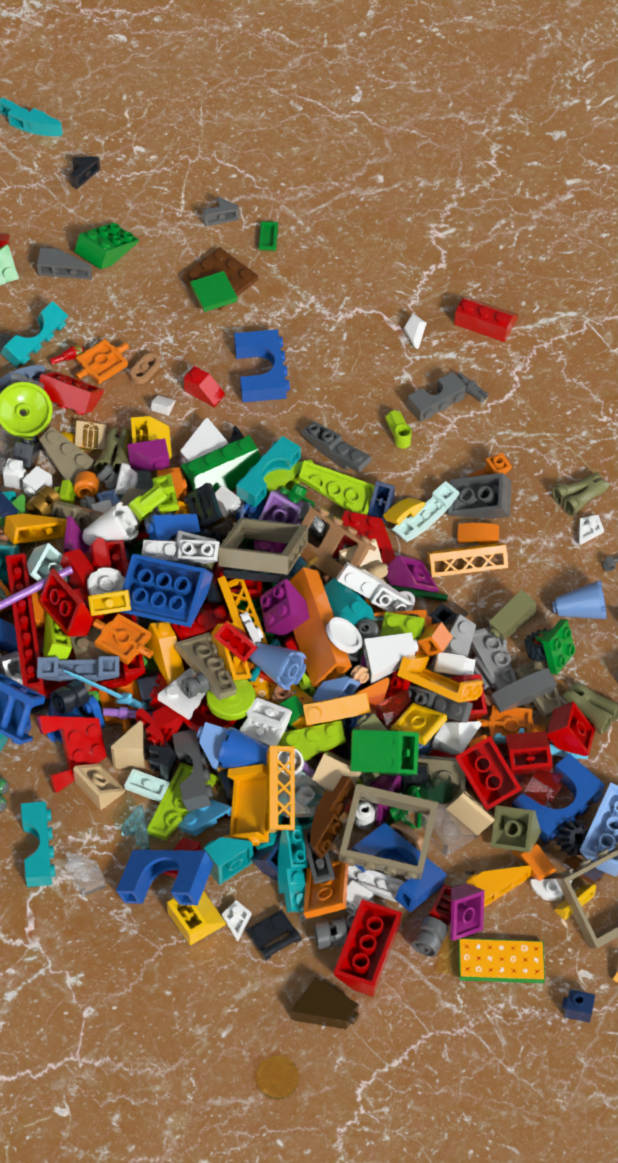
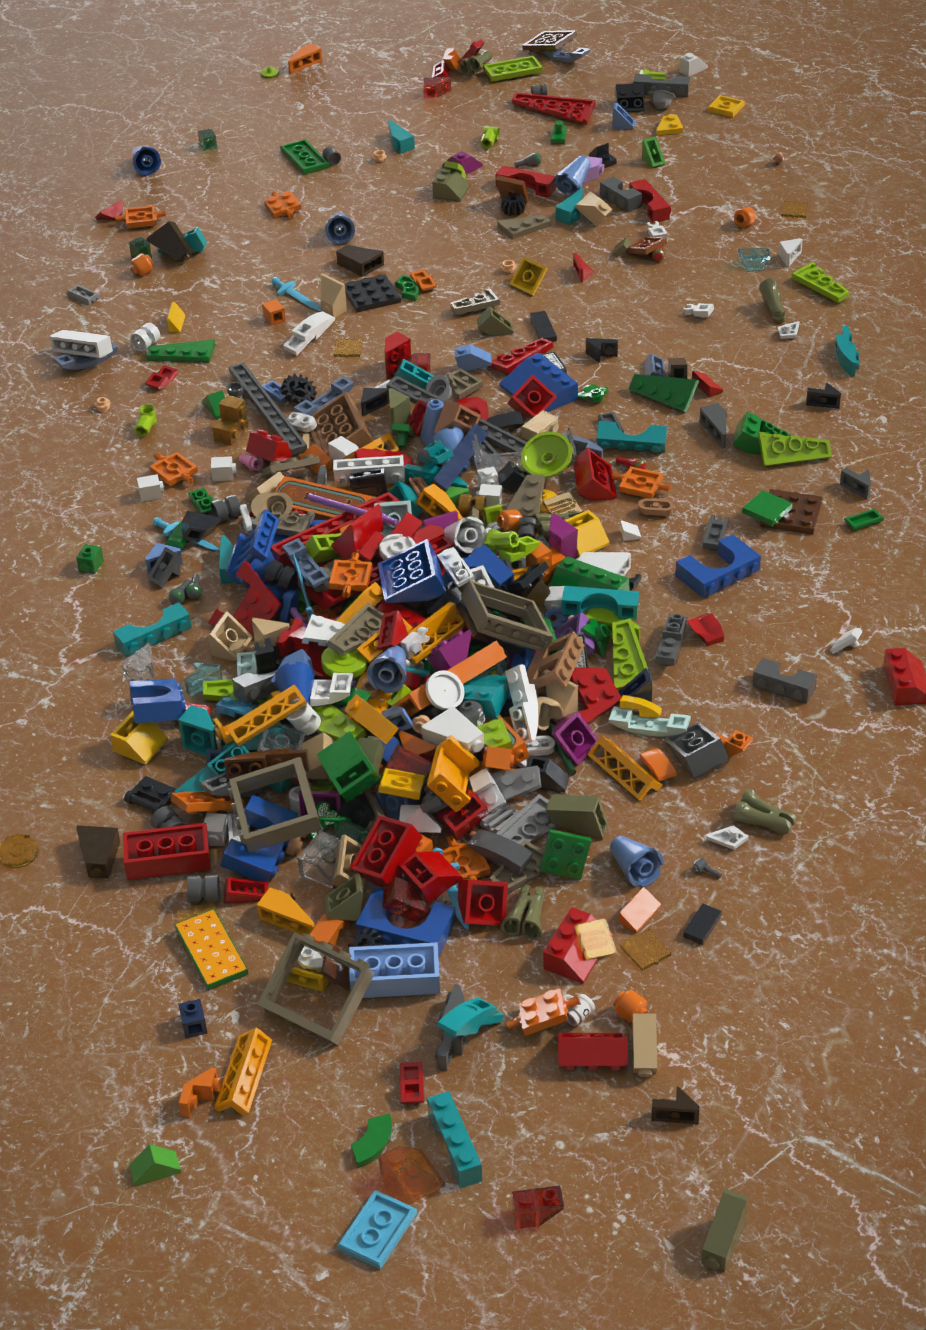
camera: 65 degrees right, 15 degrees down
(109, 602) = (376, 551): yellow slope -> none
(126, 479) = (533, 531): white plate -> none
(142, 233) = (791, 449): none -> lime wing
(195, 685) = (330, 626): dark grey wheel -> none
(203, 386) = (665, 543): red slope -> none
(212, 344) = (715, 532): none -> dark grey hinge
(236, 918) = (153, 767): white piece -> none
(310, 561) = (518, 656): clear yellow piece -> none
(332, 414) = (707, 628): none -> red slope
(399, 429) = (726, 671): lime piece -> none
(466, 911) = (236, 895): magenta slope -> none
(472, 388) = (818, 699): dark grey pin -> none

